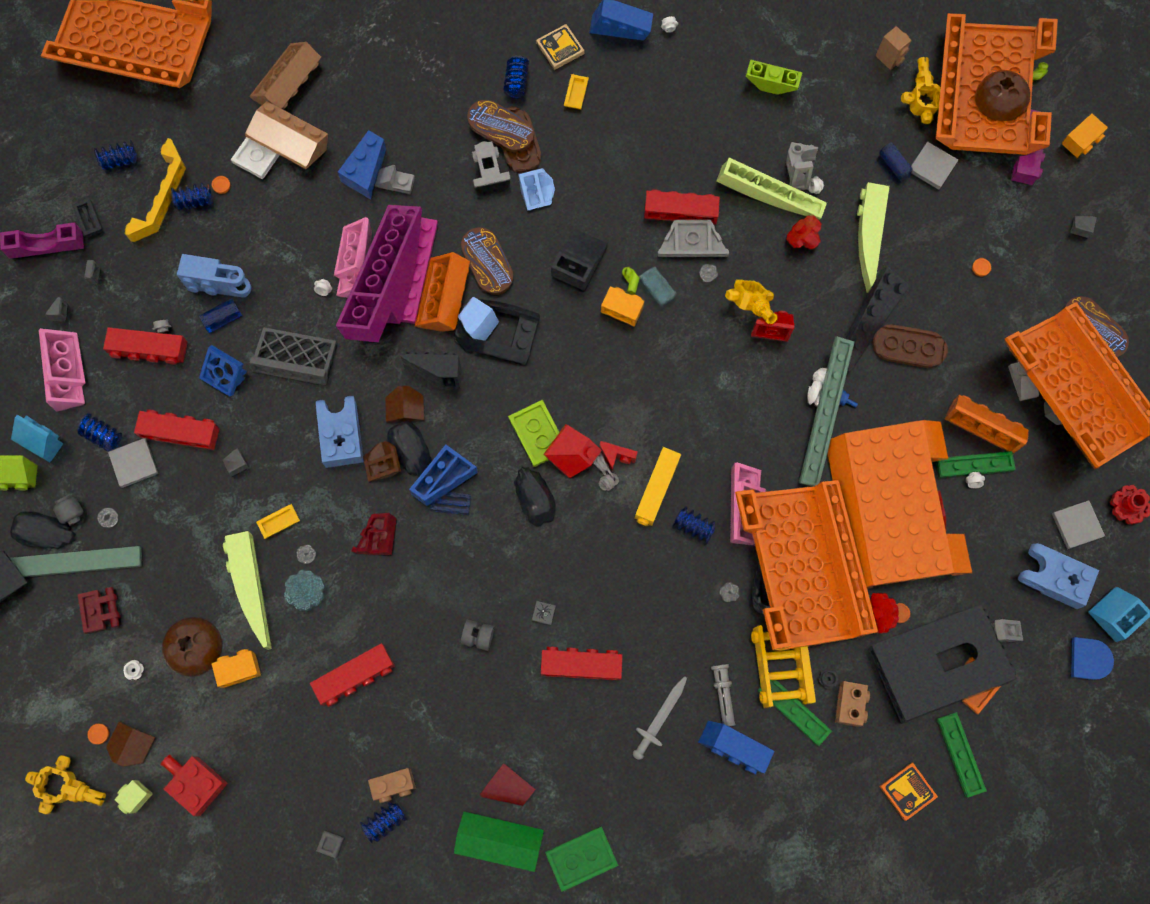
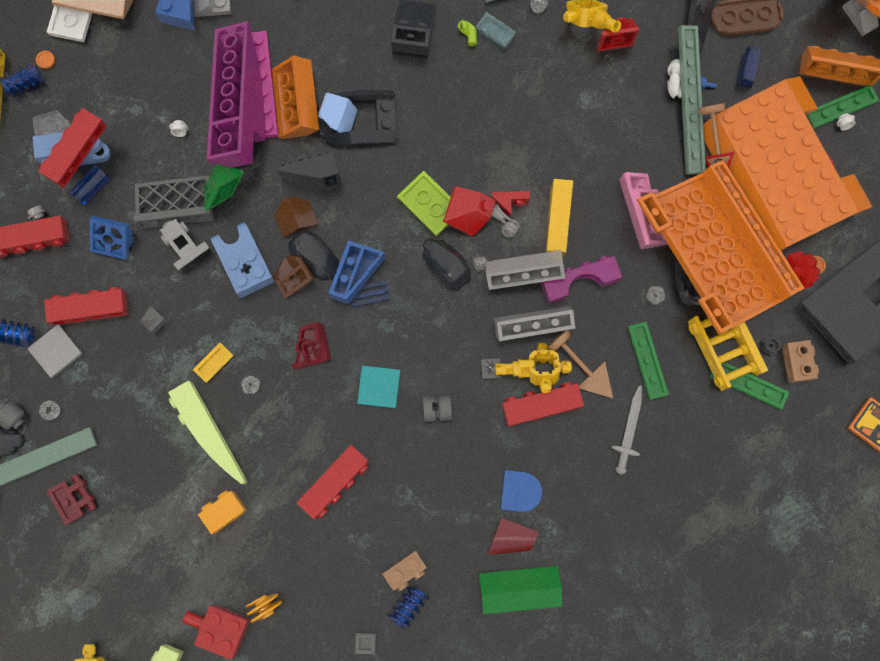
camera: 15 degrees left, 5 degrees up
(98, 734) = (112, 613): orange piece -> none
(129, 745) = (145, 614): reddish brown slope -> none
(138, 670) = (119, 544): white plate -> none
(200, 651) = (183, 505): reddish brown piece -> none
(204, 246) = (50, 123): none -> clear slope
(214, 276) = (72, 148): none -> red brick
(242, 774) = (263, 607): none -> light orange piece
(290, 408) = (172, 230): none -> light grey tile
(304, 590) = (260, 419): clear light blue plant -> none
(343, 354) = (221, 185): none -> green slope
(351, 254) = (196, 89): bright pink slope -> none
(428, 596) = (378, 387): none -> teal tile
(487, 261) = (327, 55): reddish brown tile -> none
(531, 744) = (520, 491): none -> blue tile
(567, 506) = (479, 262): none -> clear plate
(577, 623) = (526, 368): none -> yellow piece
(581, 859) = (600, 580): green tile -> none
(599, 581) = (534, 323): none -> light grey brick
(607, 526) = (525, 270): none -> light grey brick
(622, 305) = (469, 58): light orange brick -> none
(643, 659) = (598, 381): none -> medium nougat piece
(685, 552) = (603, 272): none -> magenta arch
(695, 524) = (604, 242): clear blue piece -> none
(700, 654) = (647, 361): none -> green tile
(723, 684) = (677, 381): light grey pin -> none
(736, 746) = (708, 433): blue wedge -> none
(831, 476) = (712, 159): none -> medium nougat piece
(895, 396) = (749, 66): none -> clear blue brick

